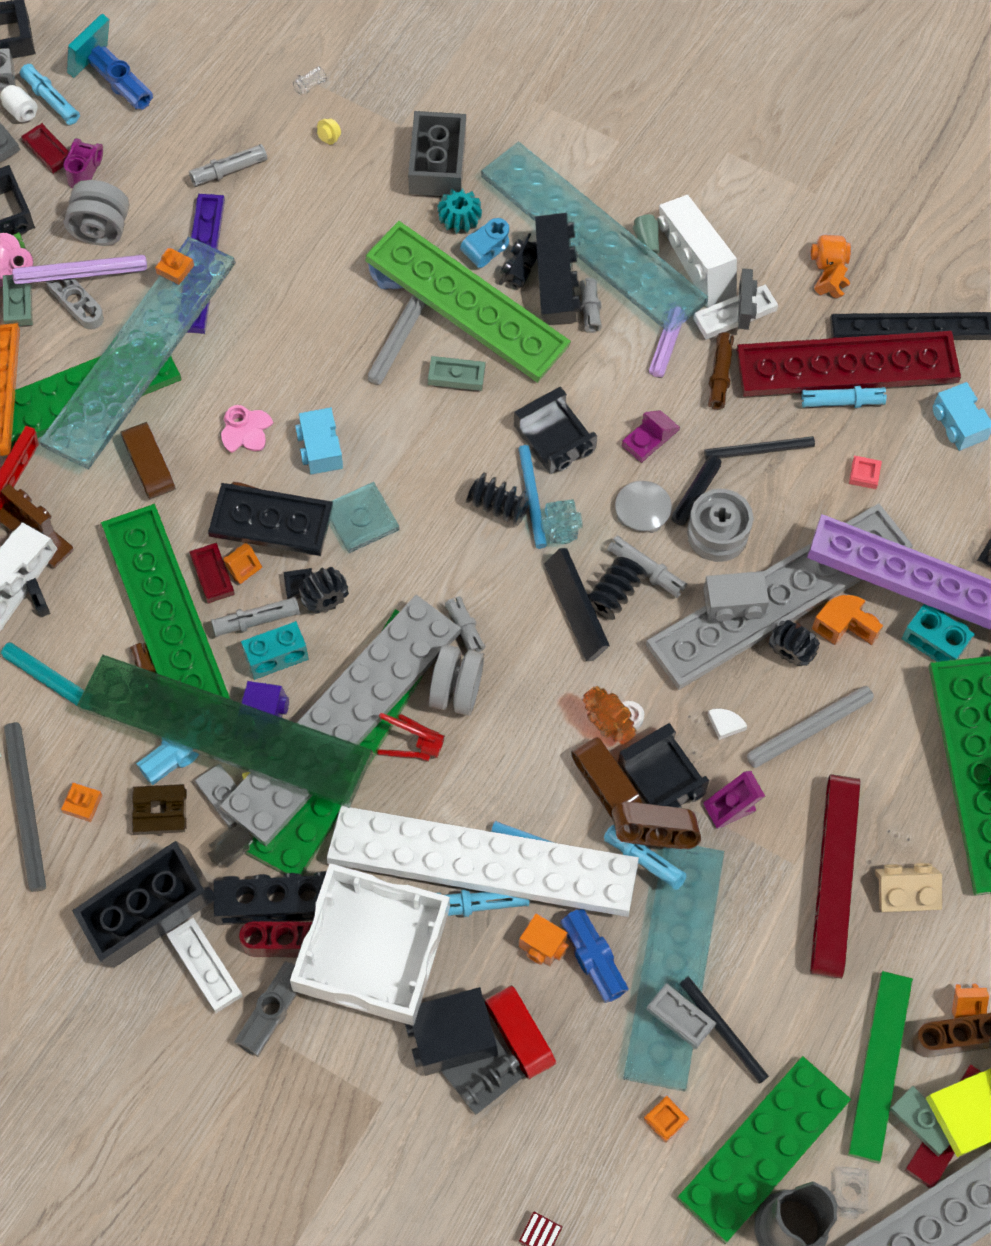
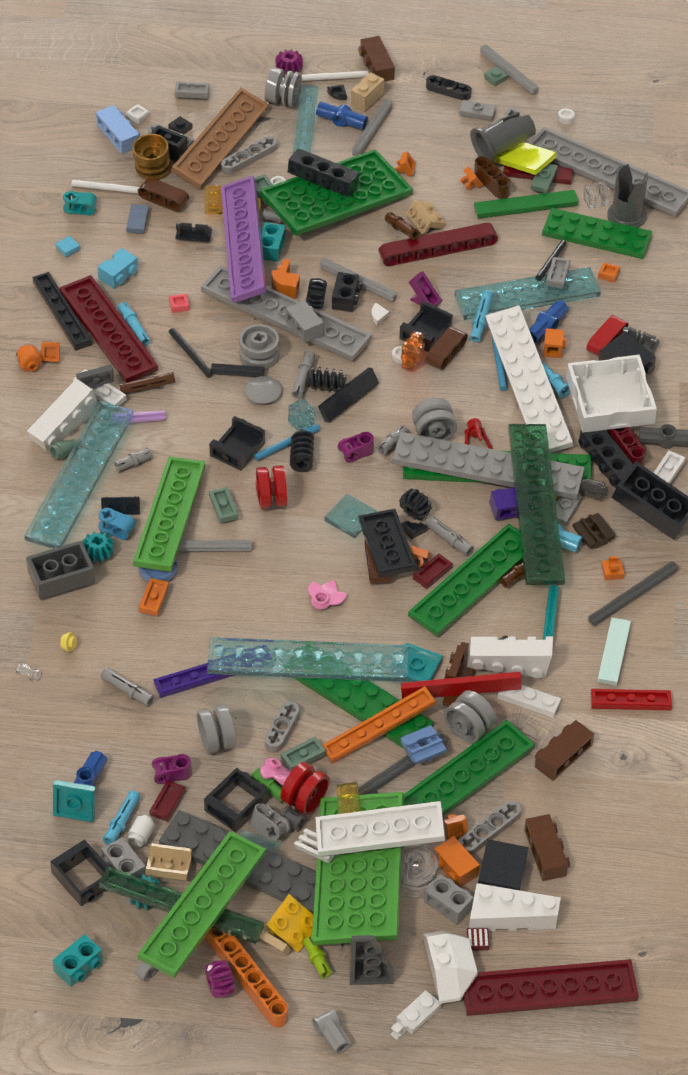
camera: 115 degrees left, 15 degrees down
(73, 486) = (422, 663): none -> teal tile
(79, 269) = (263, 725): lavender axle -> none
(148, 460) = (381, 627): reddish brown beam -> none
(174, 266) = (237, 661): orange tile -> none
(275, 650) = (466, 514): teal brick -> none
(321, 444) = (313, 551): medium azure brick -> none
(347, 240) = (153, 597): none -> orange plate
(443, 424) = (268, 487): none -> red wheel
(473, 569) = (357, 446): none -> magenta piece
(556, 269) = (121, 476): black brick -> none
(650, 435) = (212, 403): magenta slope -> none
(656, 825) = (463, 313): reddish brown beam -> none
(791, 686) = (345, 292): none -> black brick
(903, 832) = (399, 223): none -> reddish brown pin

